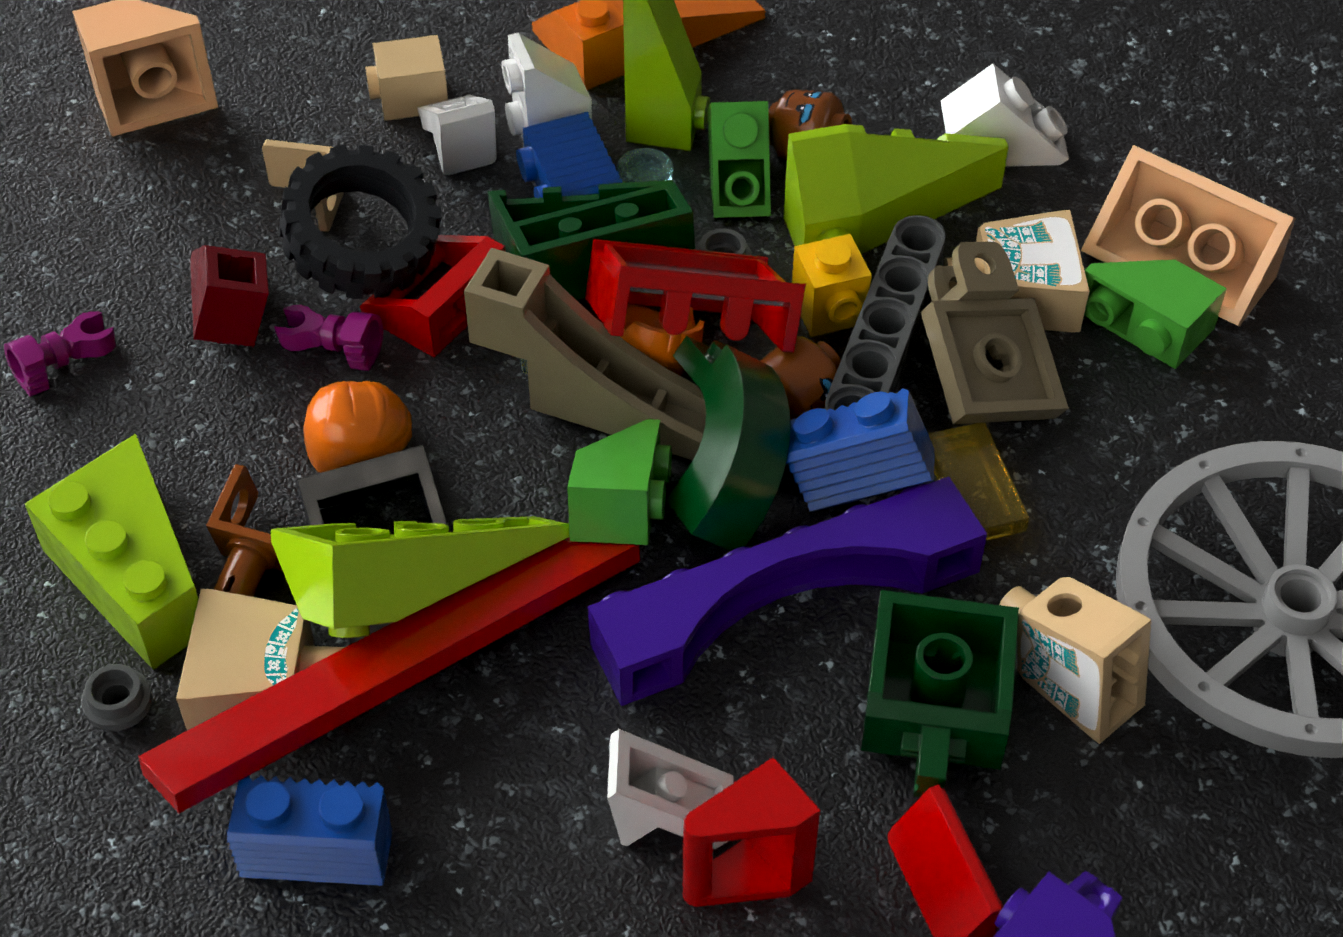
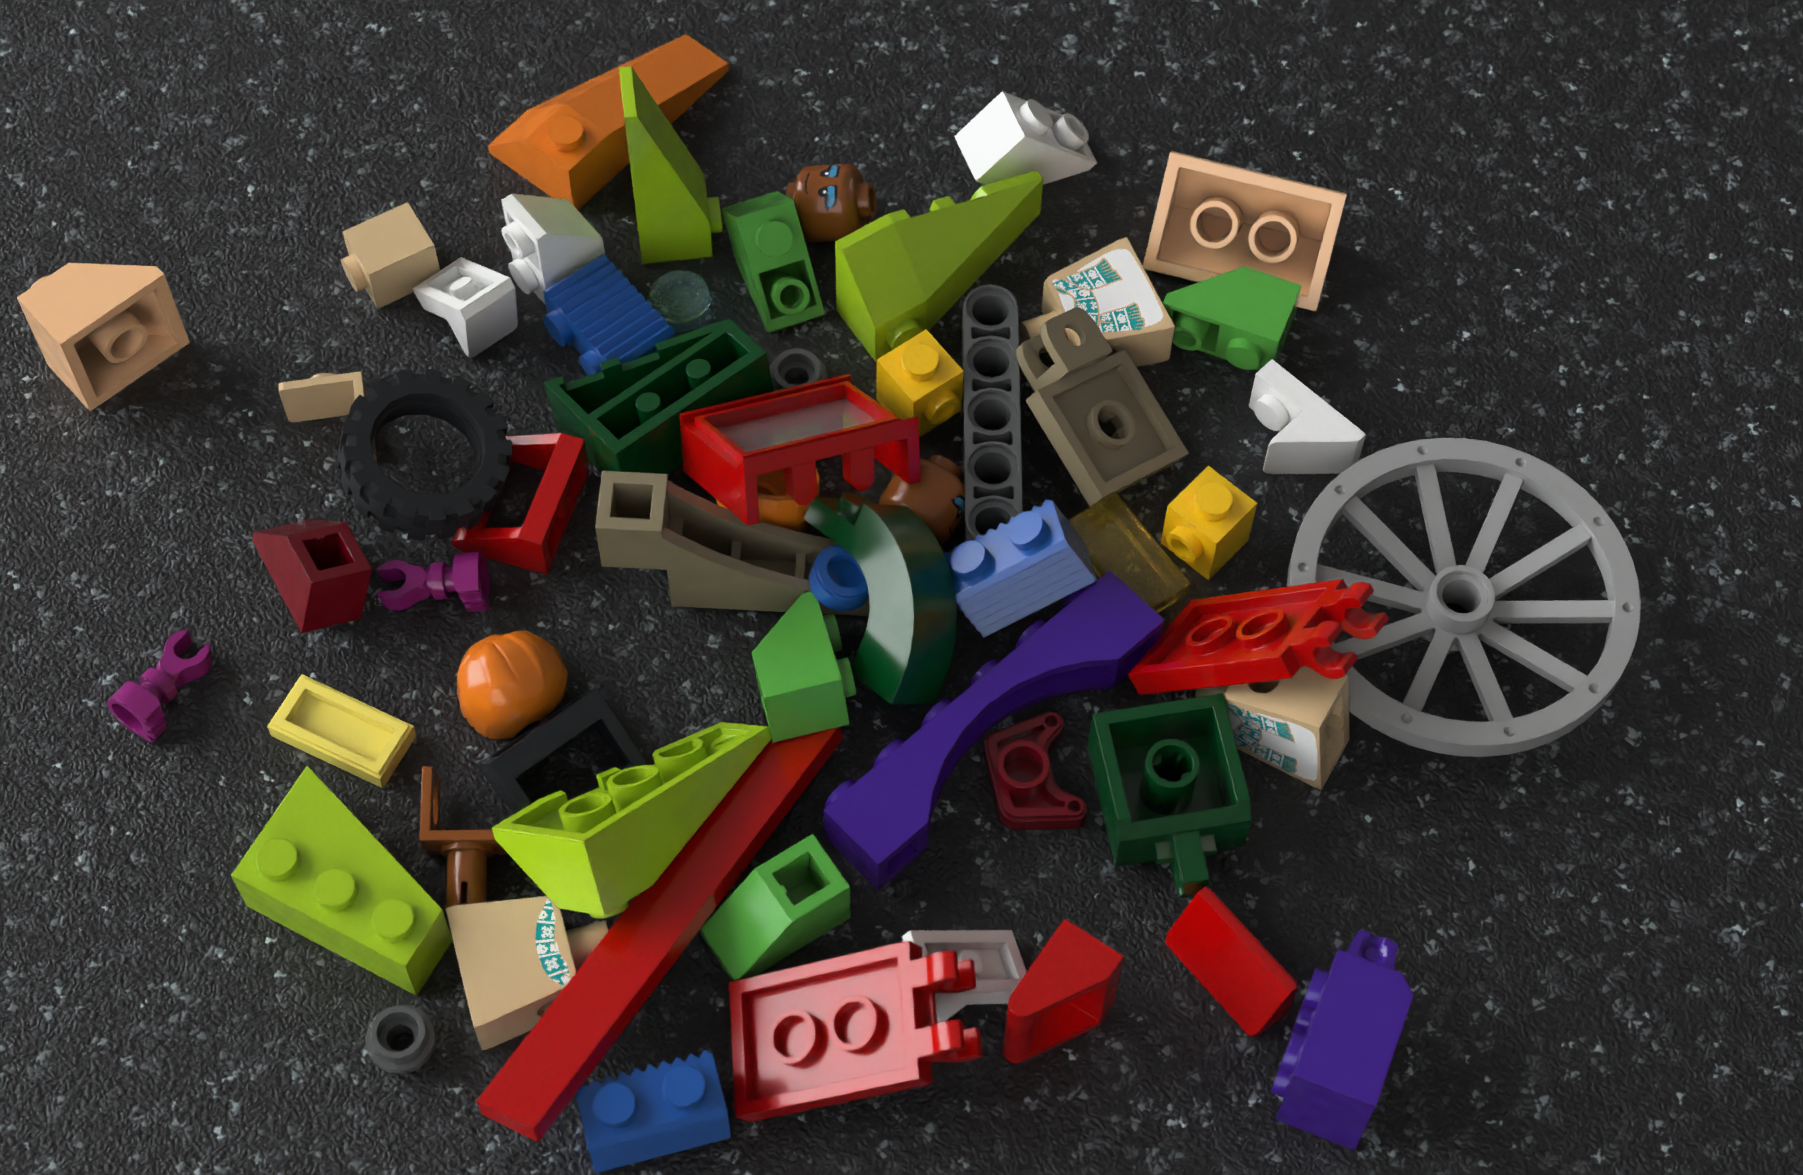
camera: 20 degrees left, 10 degrees up
(193, 430) = (342, 731): none -> light yellow tile
(511, 685) = (778, 910): none -> bright green slope
(526, 807) = (845, 1029): none -> tile
(682, 414) = (838, 580): none -> blue tile
(800, 646) = (1024, 778): none -> dark red piece
(1065, 467) = (1208, 522): none -> yellow brick
(1075, 565) = (1258, 637): none -> red tile
(1186, 409) = (1311, 432): none -> white slope

